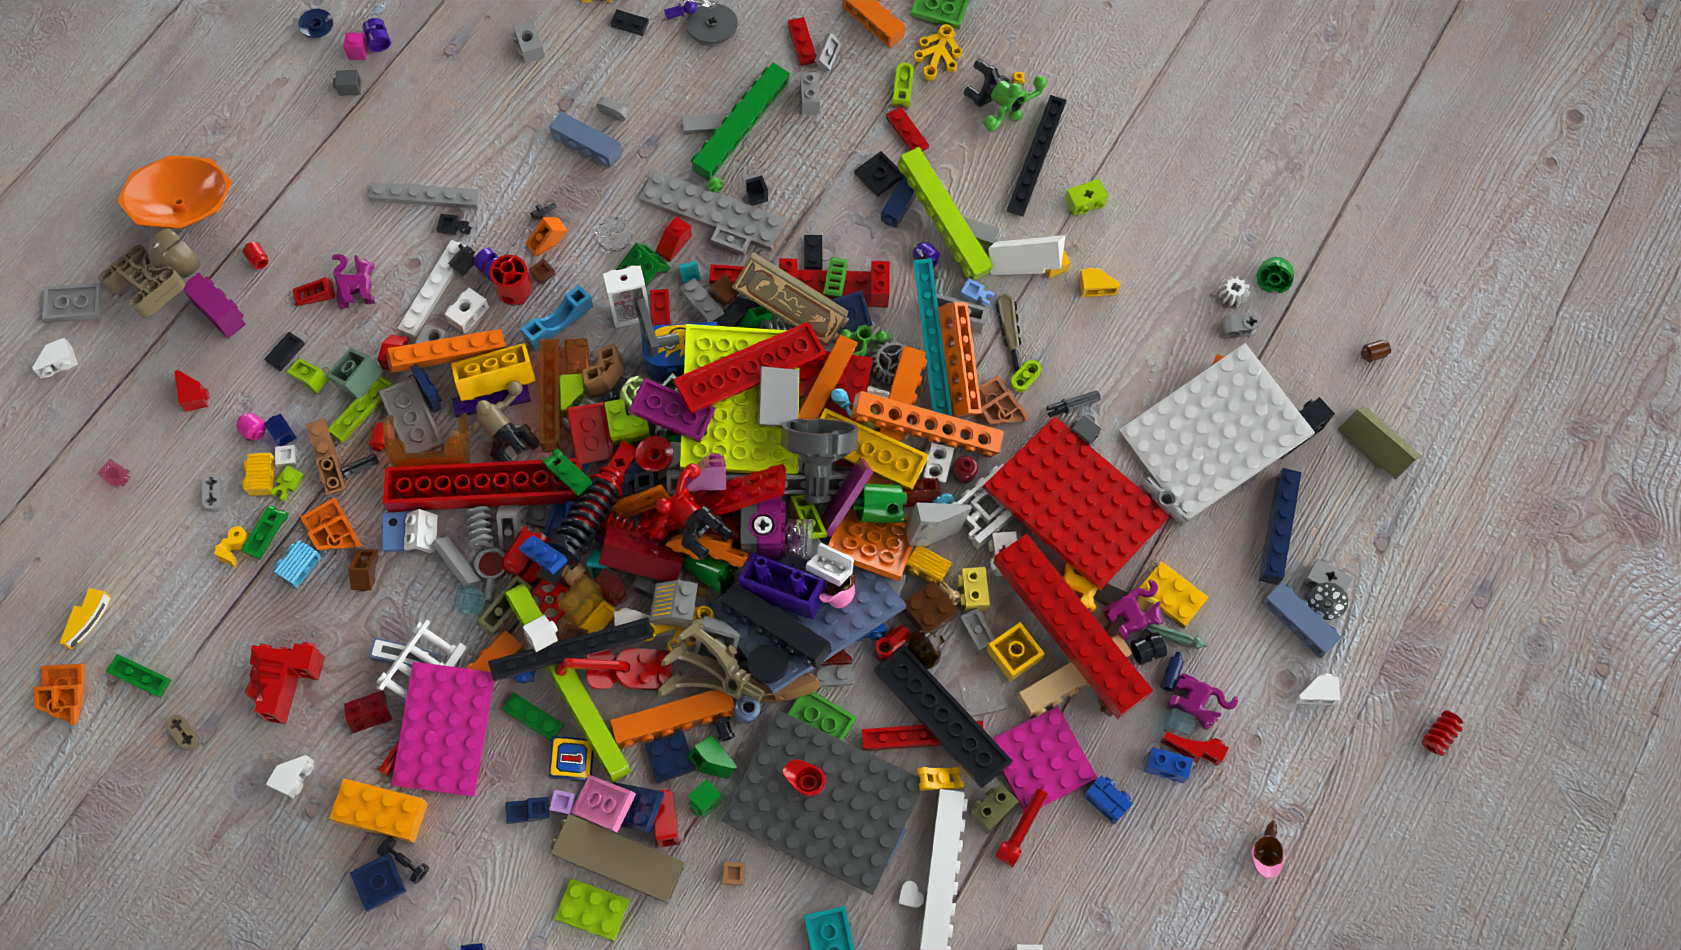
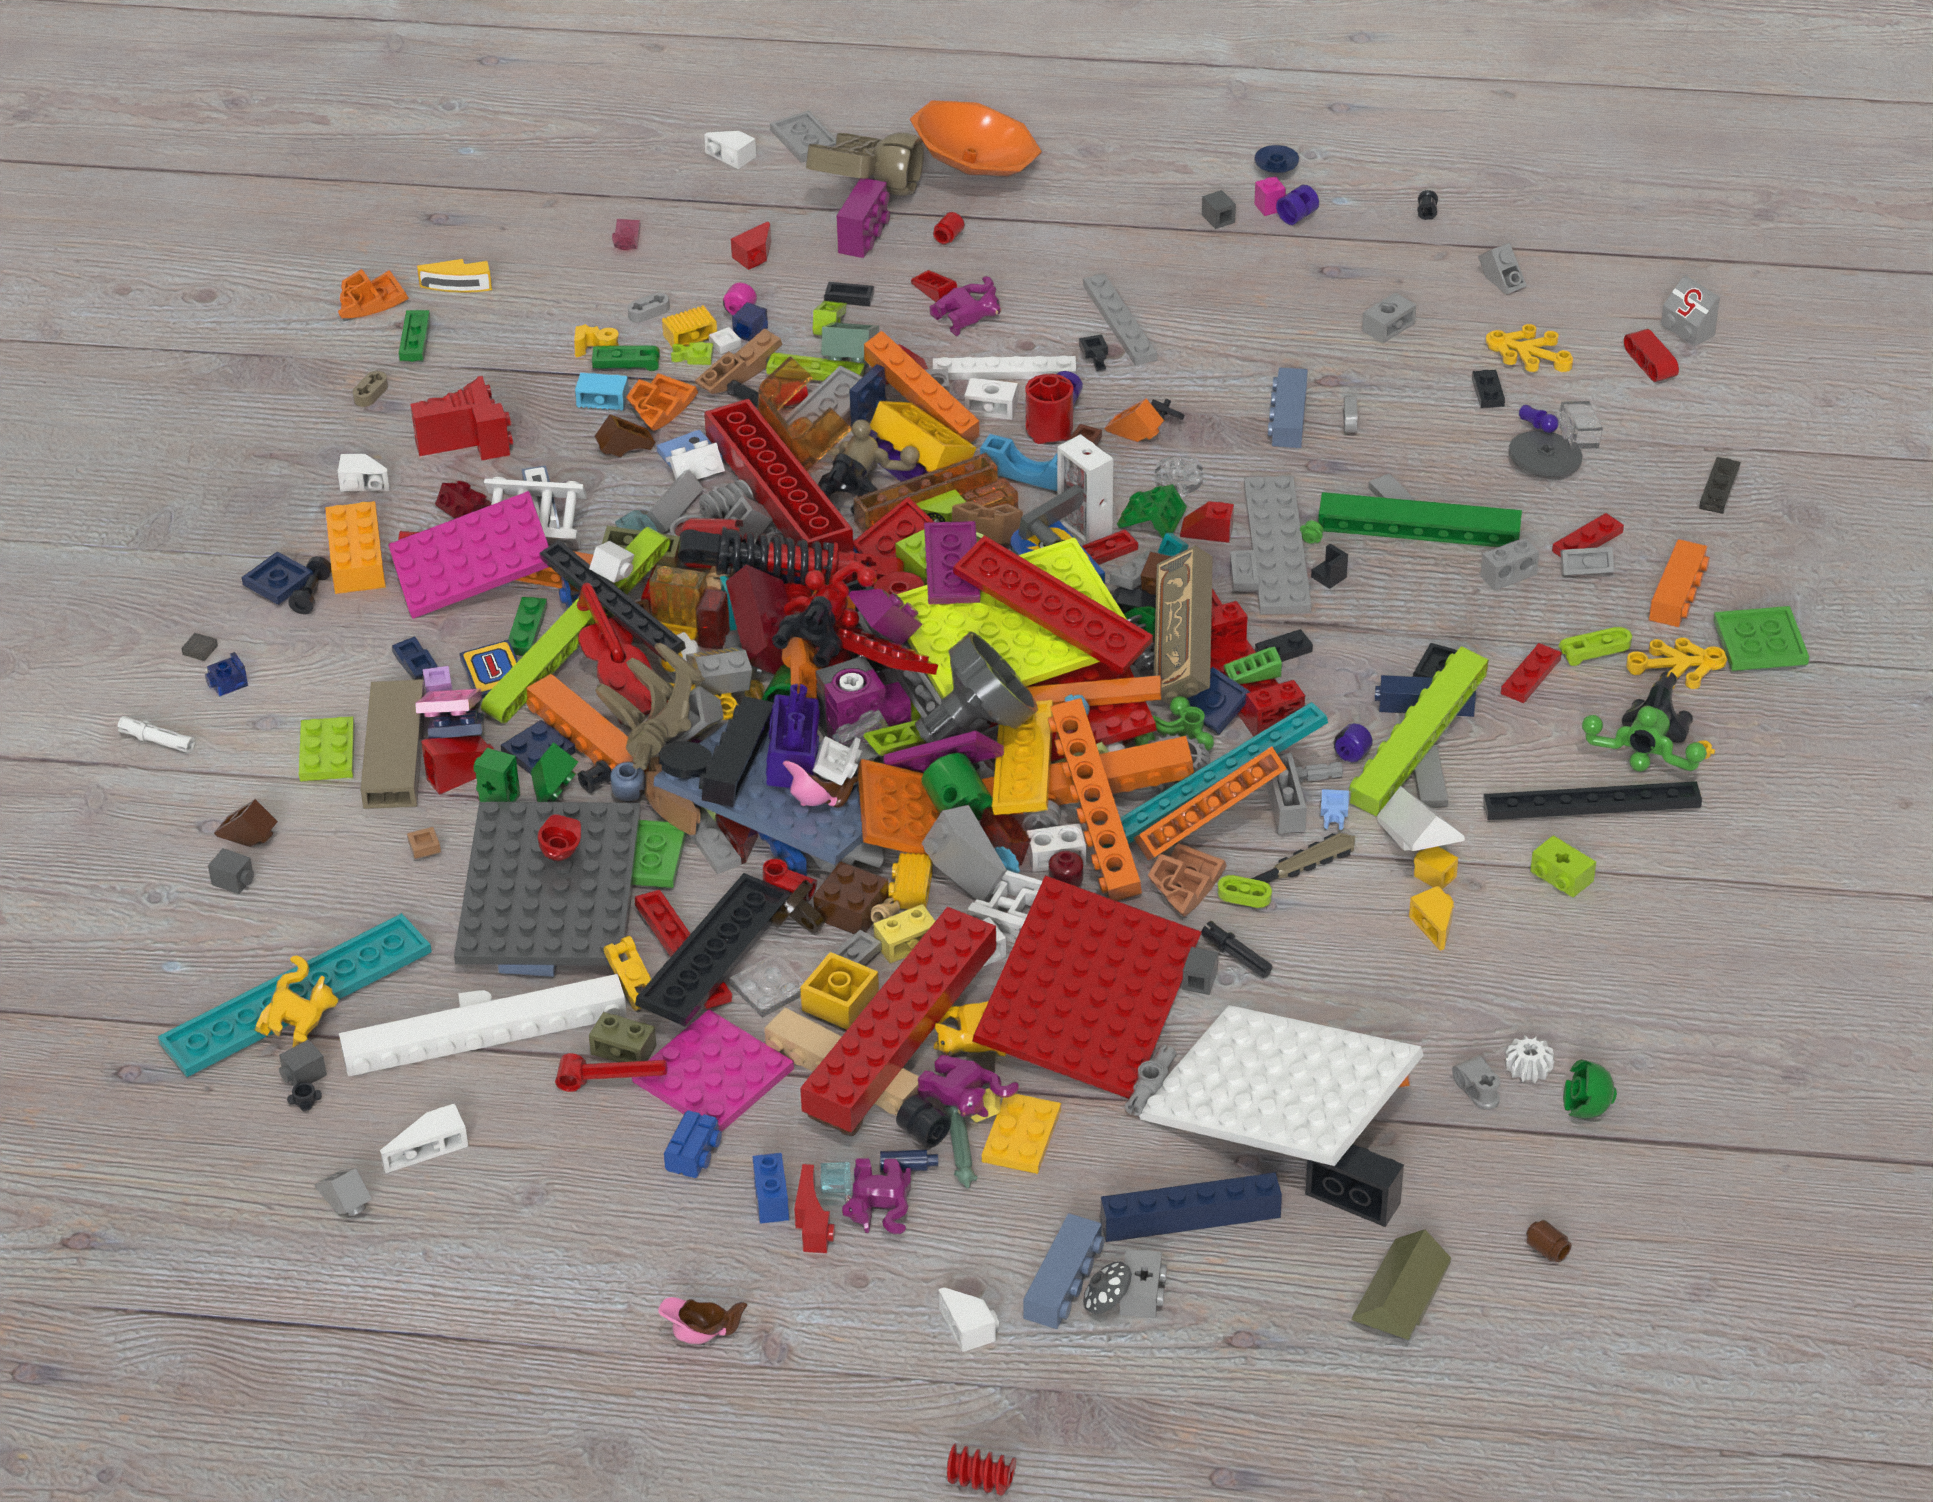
camera: 70 degrees right, 25 degrees down
(463, 260) = (1053, 366): black bracket -> none
(543, 554) = (704, 524): blue plate -> none
(567, 472) = (824, 519): green plate -> none
(778, 396) = (1032, 639): light grey tile -> none

